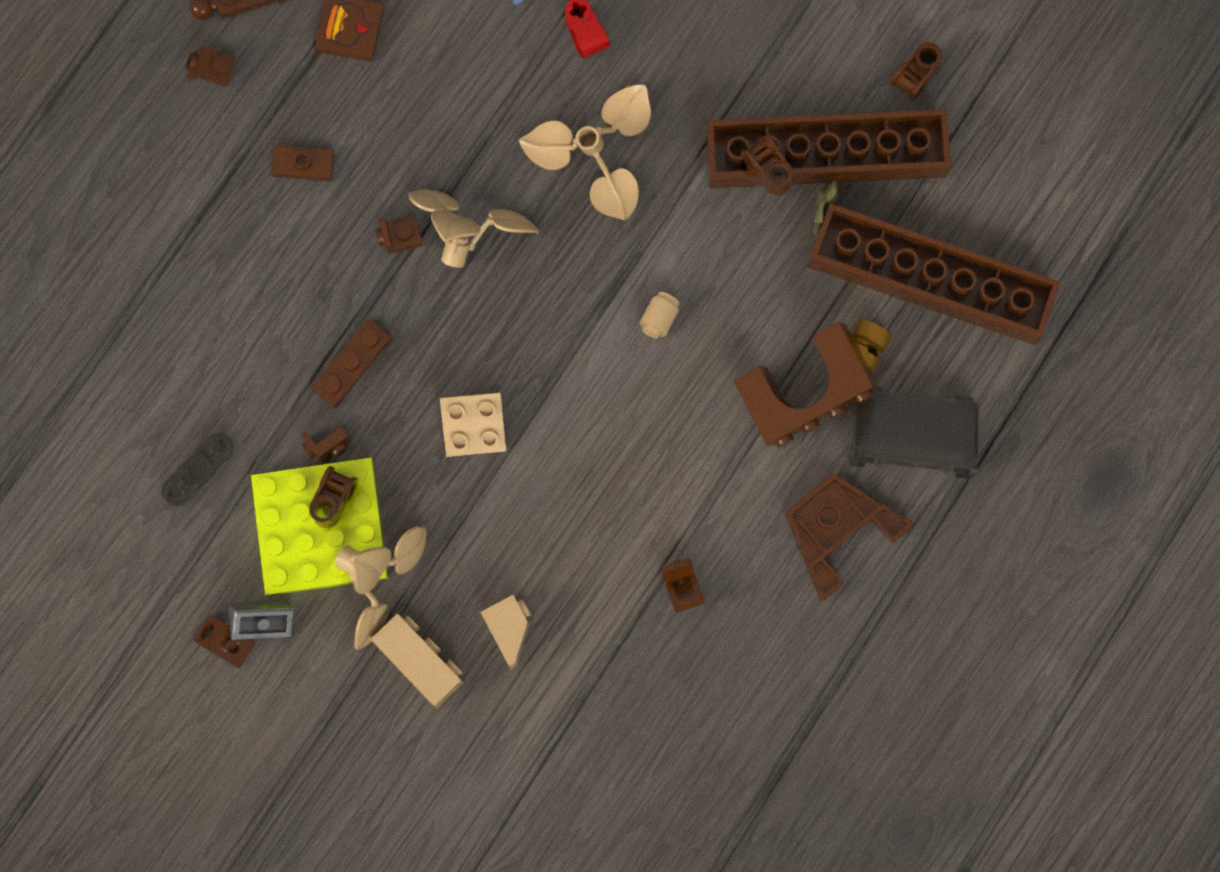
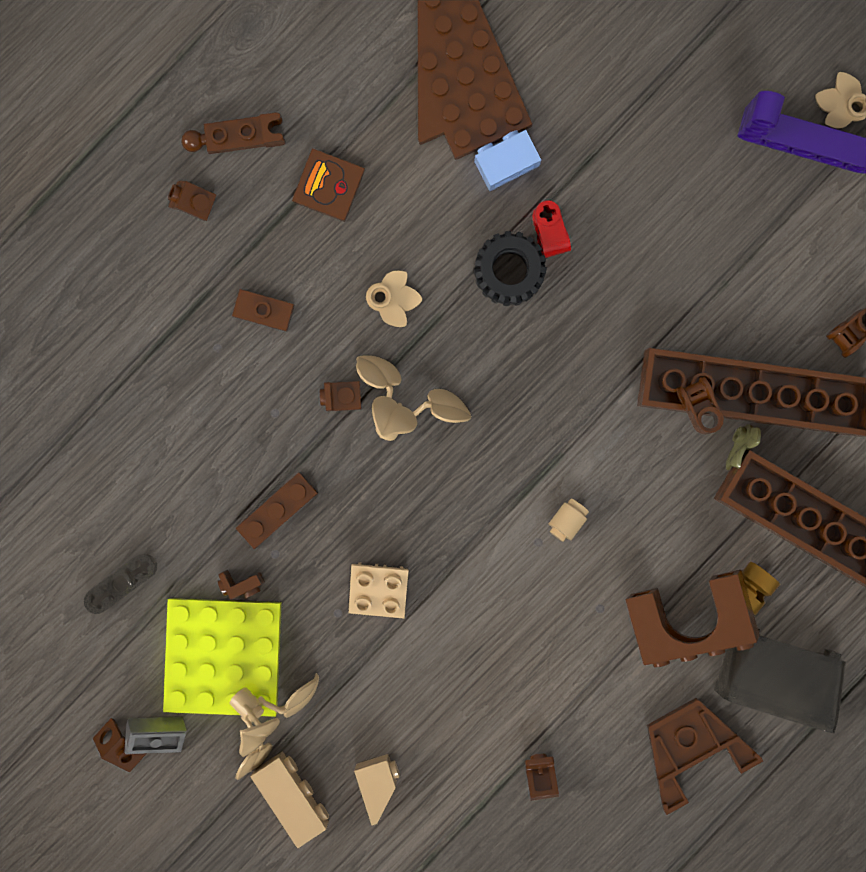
camera: 10 degrees right, 10 degrees up
(333, 491) = (239, 636): reddish brown piece -> none
(441, 127) = (397, 301): none -> tan plate
(545, 51) = (510, 244): none -> black tyre
(550, 144) = (497, 336): tan plant -> none

